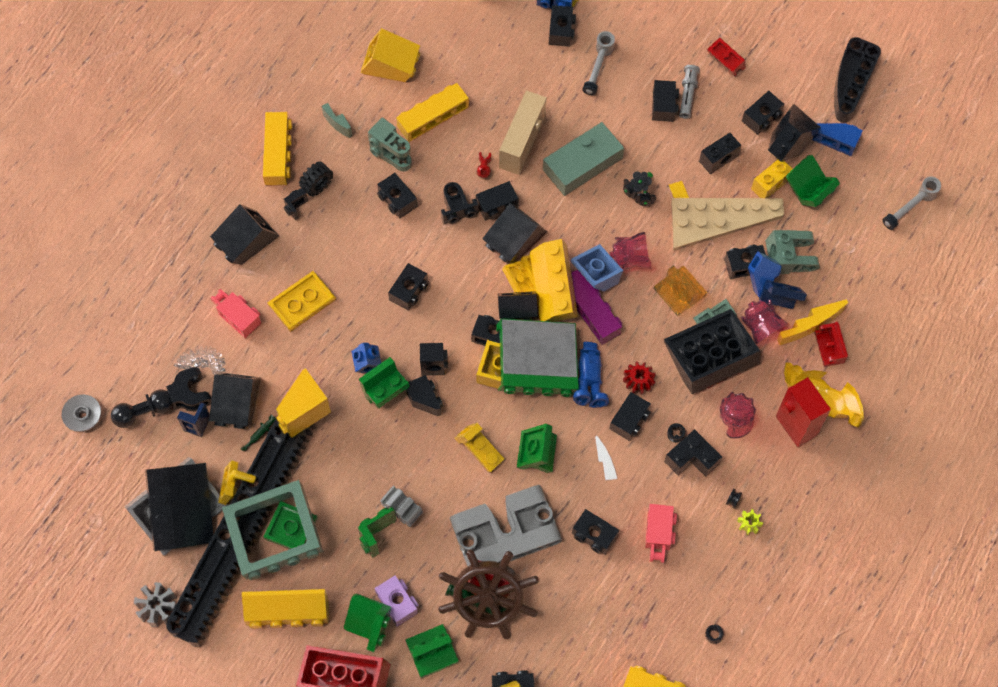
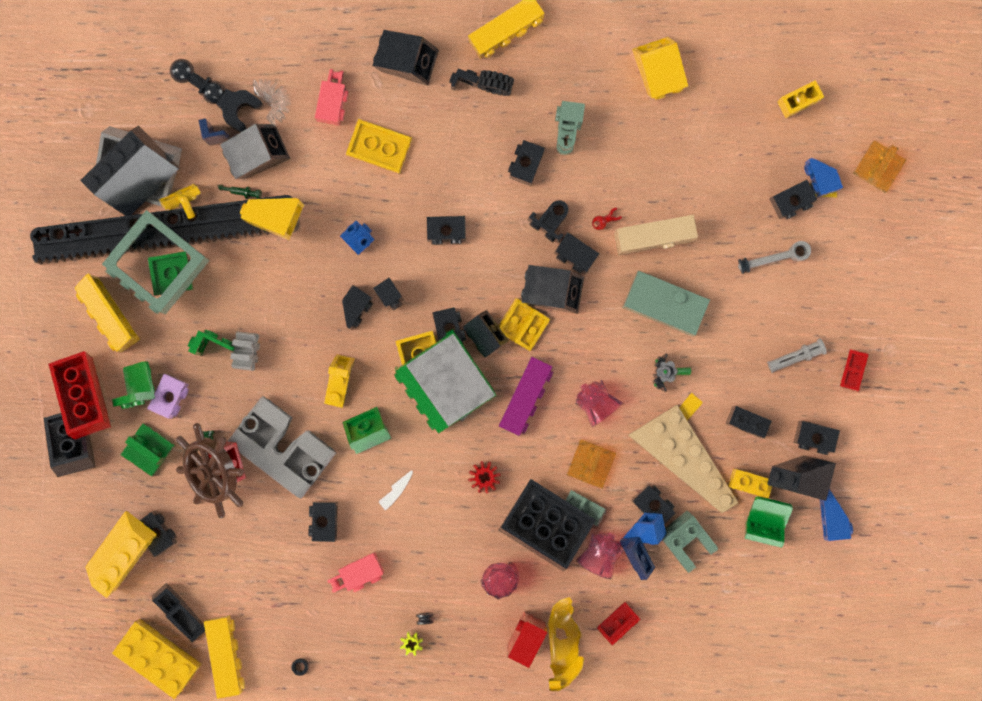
camera: 60 degrees right, 20 degrees up
(75, 407) = (160, 26): light grey dish -> none
(147, 605) = (51, 200): light grey gear -> none
(337, 122) = (567, 65): sand green slope -> none
(383, 383) = (339, 269): green bracket -> none
(432, 112) = (629, 140): yellow brick -> none
(553, 281) = (522, 354): yellow slope -> none
(590, 375) = (461, 434): blue piece -> none
(598, 268) = (560, 382): medium blue slope -> none
(630, 416) = (444, 490): black brick -> none
(664, 100) = (772, 340): black brick -> none
(676, 426) = (460, 533): black bush -> none
(694, 451) = (444, 559): black brick -> none
(816, 317) = (636, 598): yellow slope -> none
(852, 71) = (911, 492): black beam -> none
(891, 221) = (775, 611): light grey piece -> none

